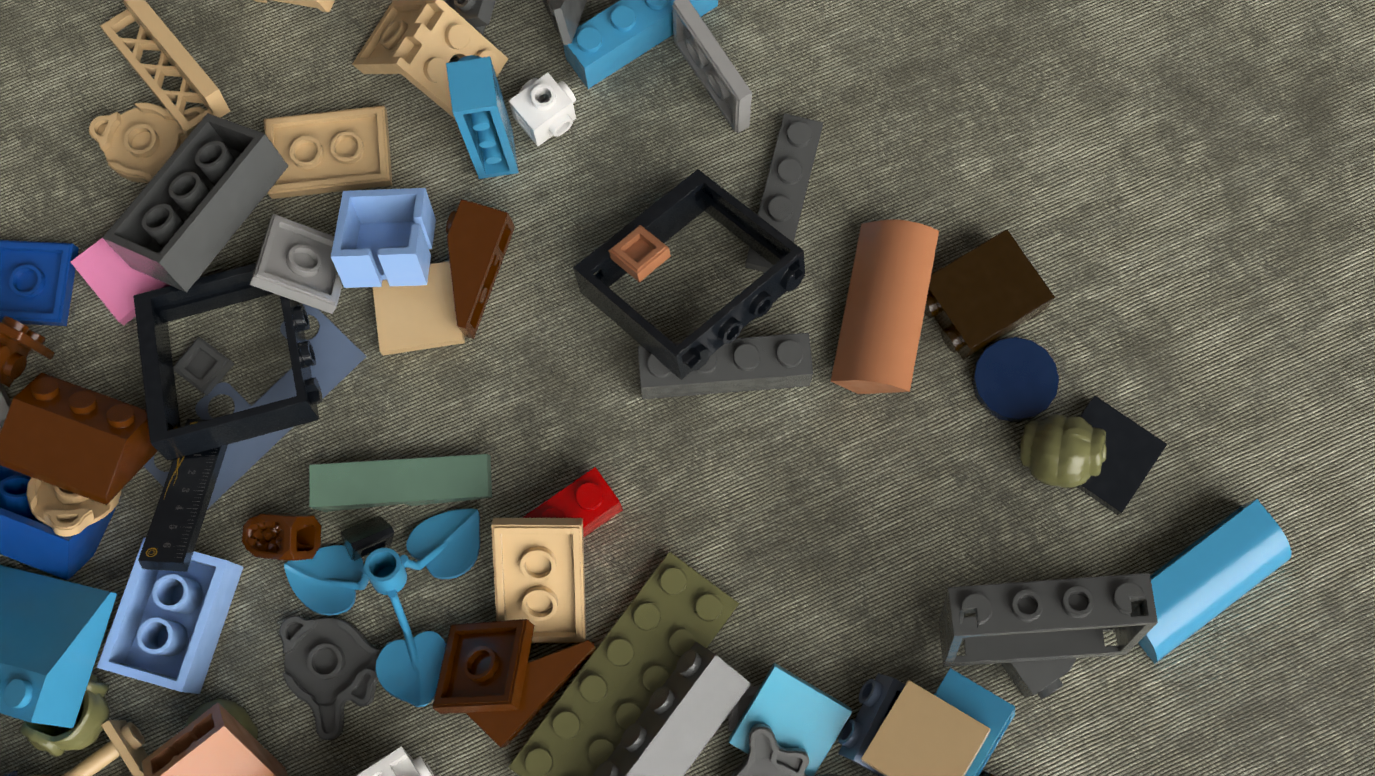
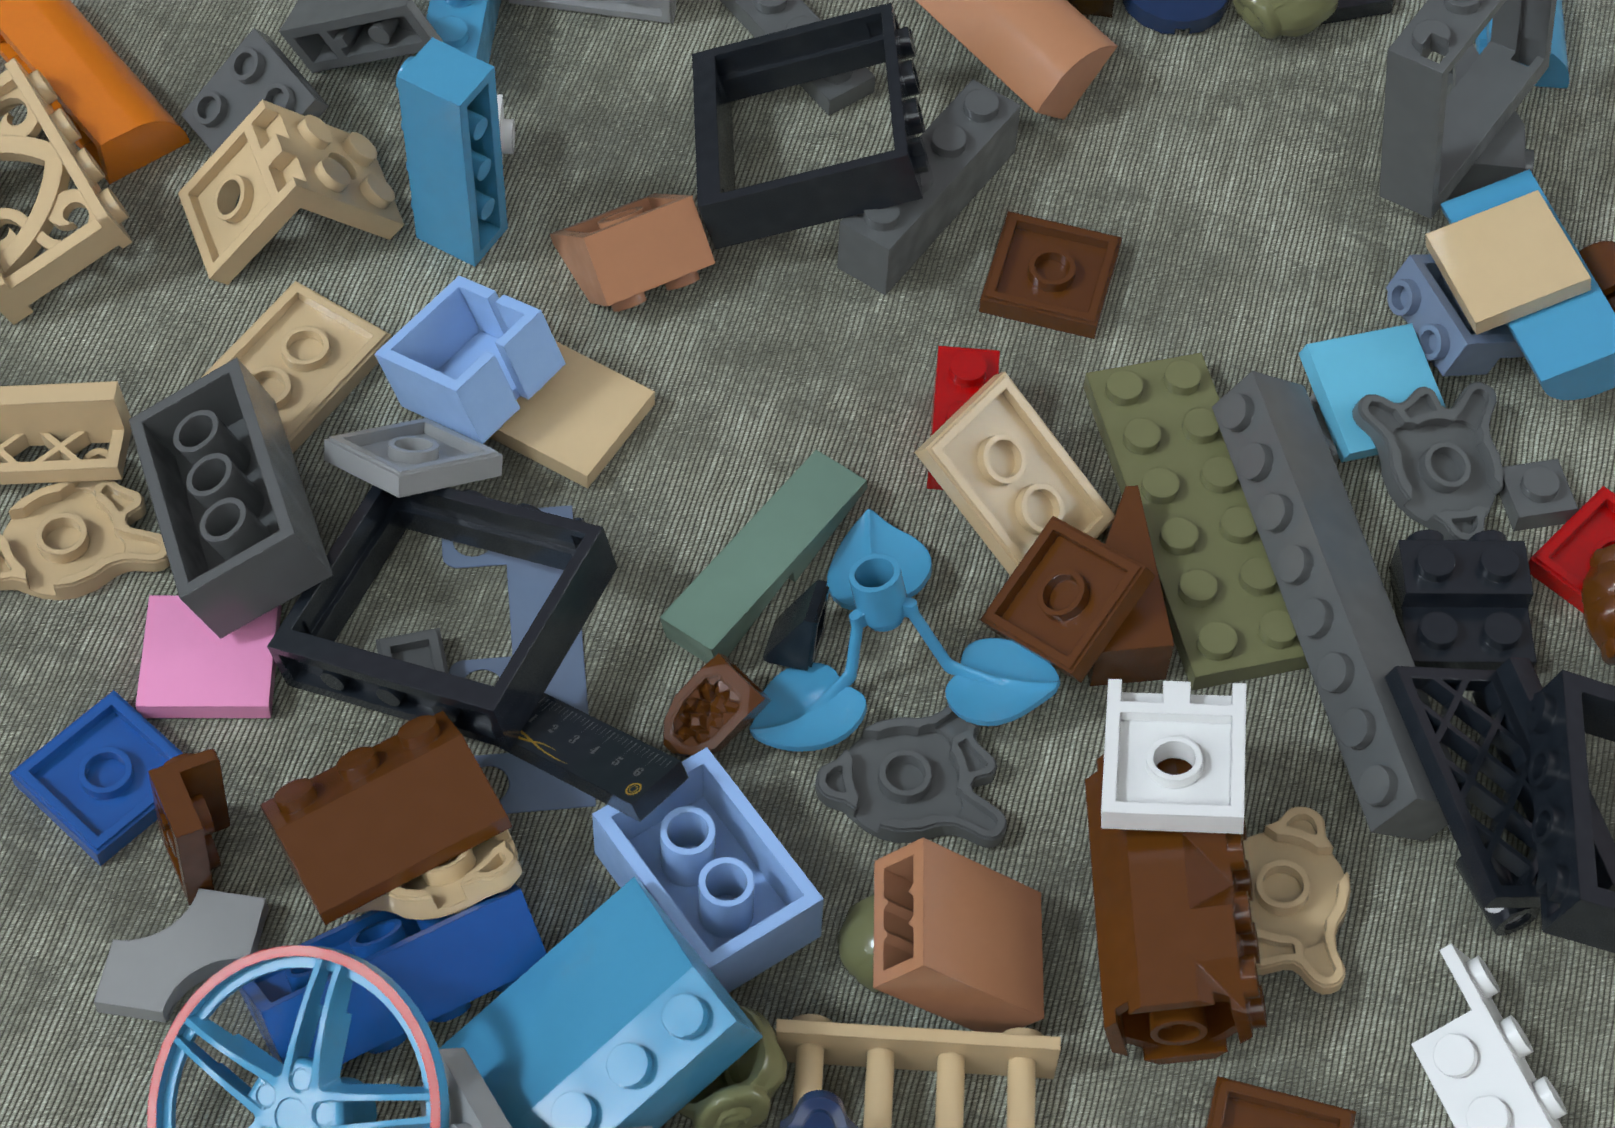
camera: 55 degrees left, 20 degrees down
(476, 251) = (578, 309): reddish brown slope -> none
(542, 247) = (636, 250): none -> nougat slope
(639, 253) = (745, 138): nougat tile -> none
(730, 476) = (1050, 275): none -> reddish brown tile

